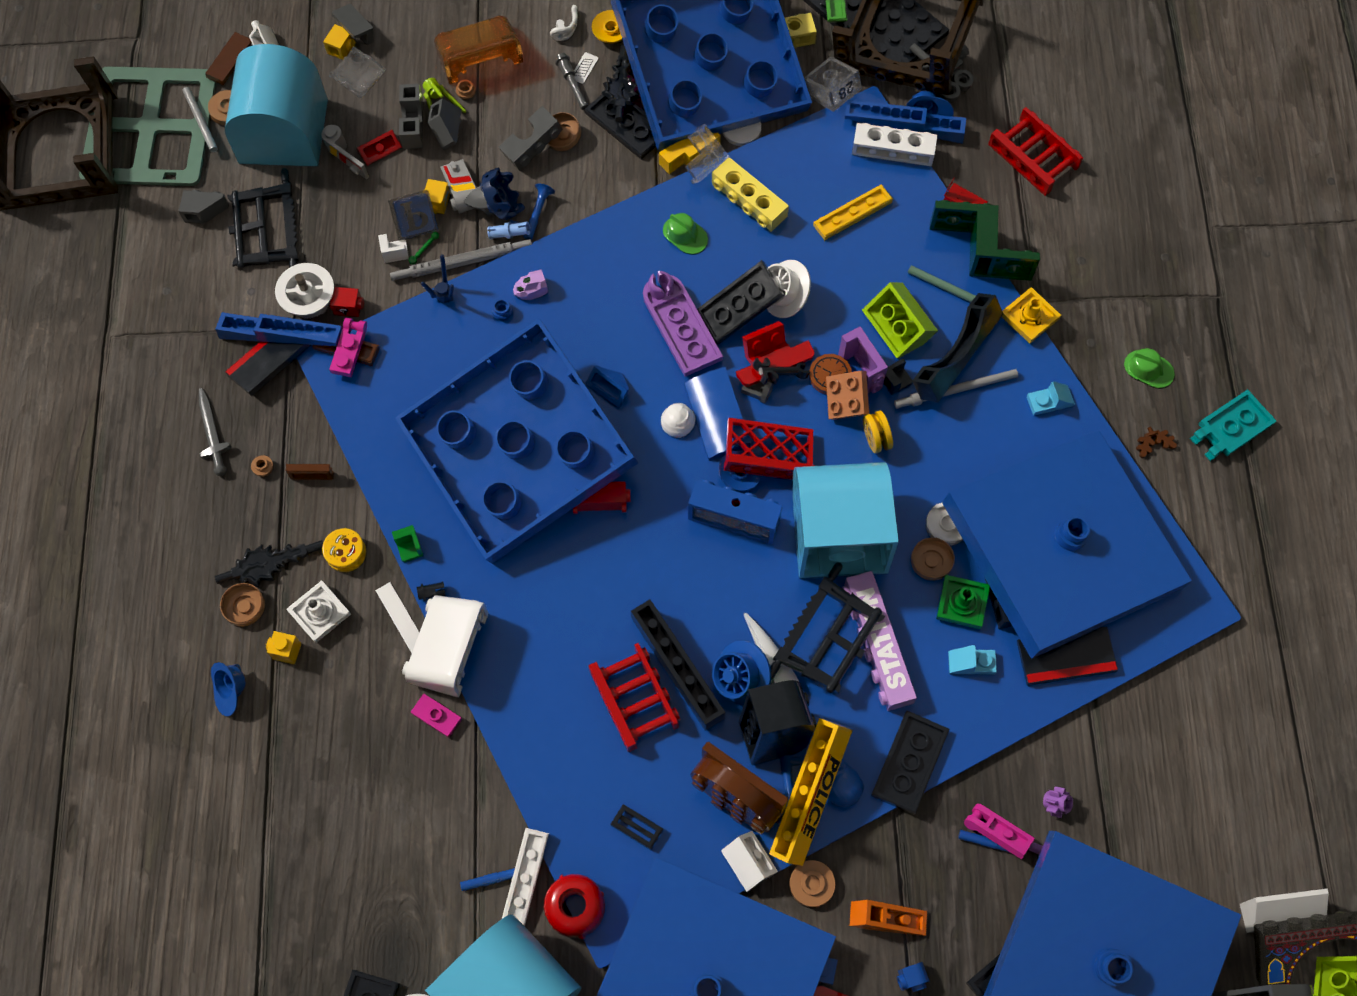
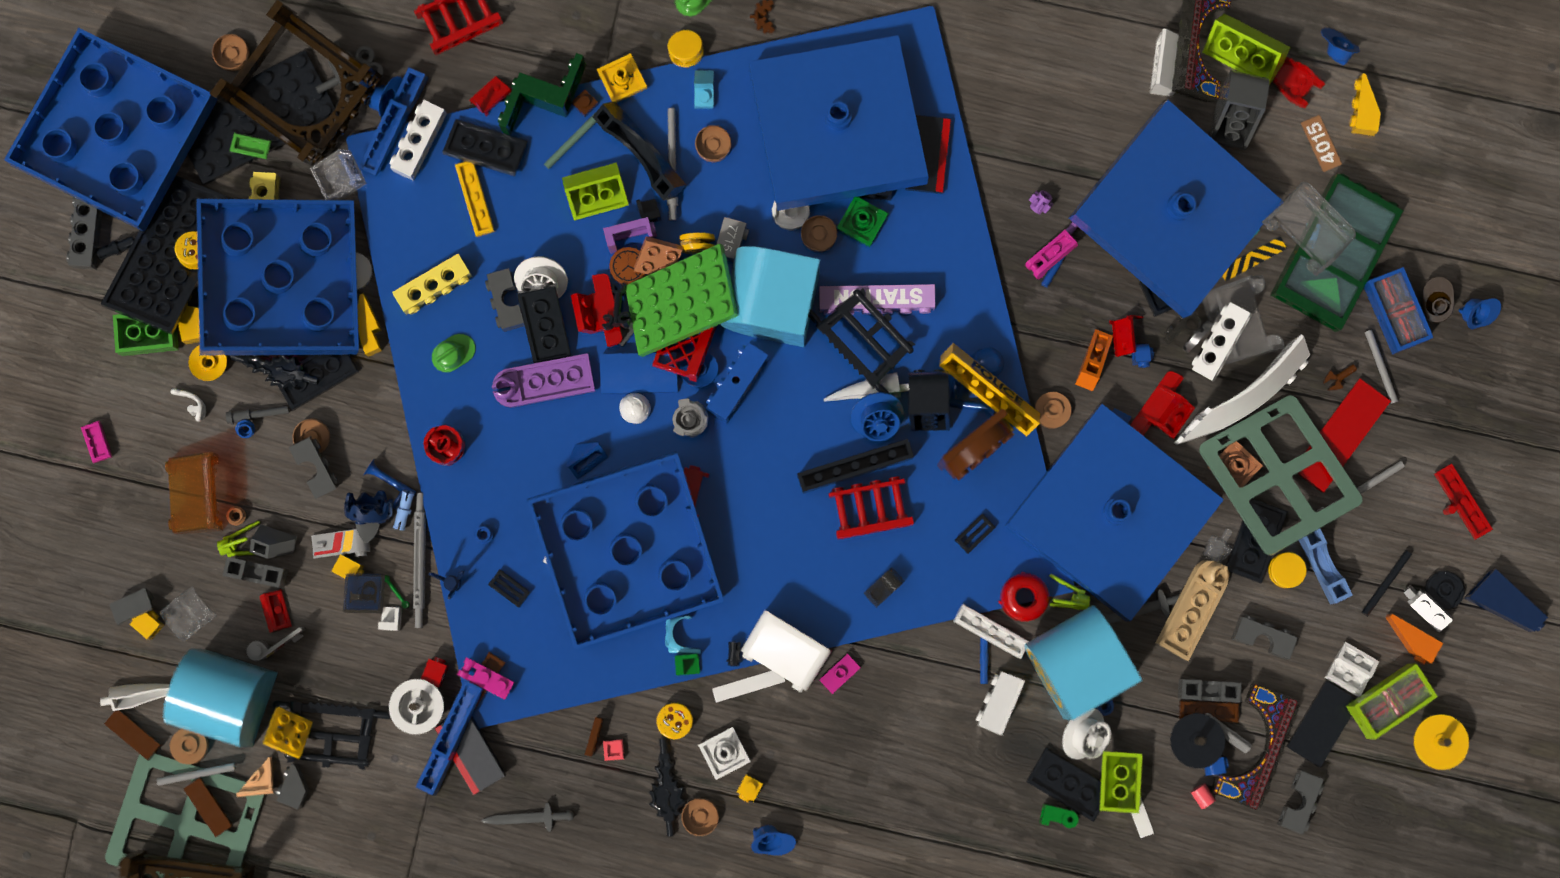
camera: 75 degrees left, 15 degrees up
(168, 137) = (208, 807): none -> reddish brown tile
(203, 176) = (260, 782): none -> light nougat tile
(245, 169) = (277, 737): none -> yellow plate
(266, 469) = (581, 775): medium nougat plate -> none
(300, 497) = (613, 750): none -> coral tile
(425, 524) = (672, 646): none -> medium azure helmet
(439, 909) = (999, 702): none -> white slope
(444, 363) = (522, 598): none -> black tile
(531, 286) = (468, 503): lavender rock -> none
(546, 735) = (883, 587): none -> clear smoke plate
(551, 71) = (245, 433): none -> blue plate
(584, 67) = (242, 398): white sticker -> none
(584, 245) = (444, 445): none -> red brick
(587, 976) = (1078, 600): none -> lime plant
(680, 472) = (690, 418): none -> light grey helmet
(710, 155) = (387, 308): clear panel -> none
(749, 860) = (1024, 453): white panel -> none
(768, 251) = (500, 284): none -> dark grey arch
(807, 424) = (681, 300): none -> bright green plate
(900, 464) = (732, 236): none -> light grey brick
(908, 207) = (485, 147): none -> black tile
(910, 762) = (980, 305): black tile -> none
(930, 947) = (1124, 335): none -> red piece
(972, 661) = (912, 230): medium azure slope -> none
(991, 286) = (584, 103): none -> reddish brown plate
(993, 423) = (713, 143): none -> medium nougat piece
(1087, 369) = (685, 48): none -> yellow head

